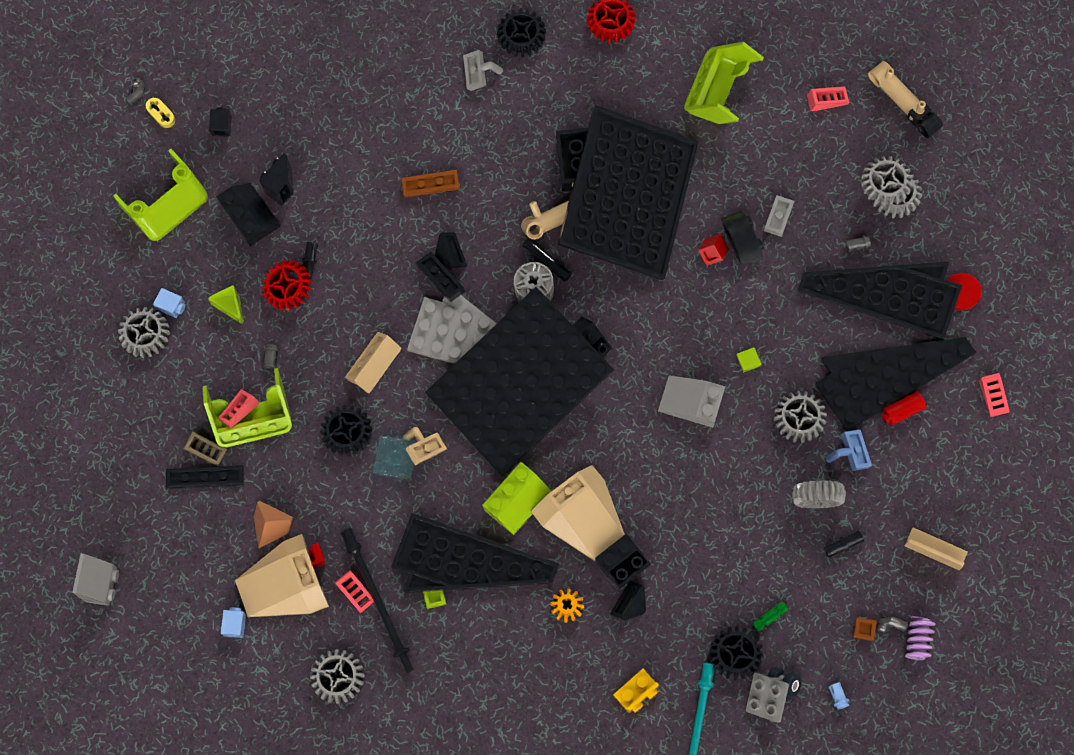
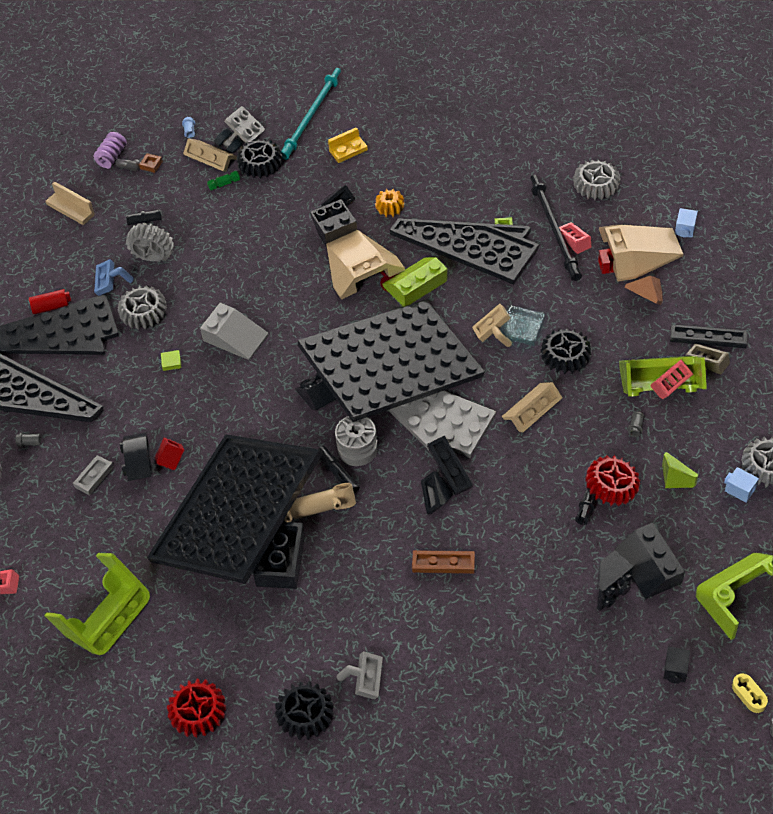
camera: 170 degrees left, 20 degrees down
(798, 656) = (208, 154): none -> tan panel

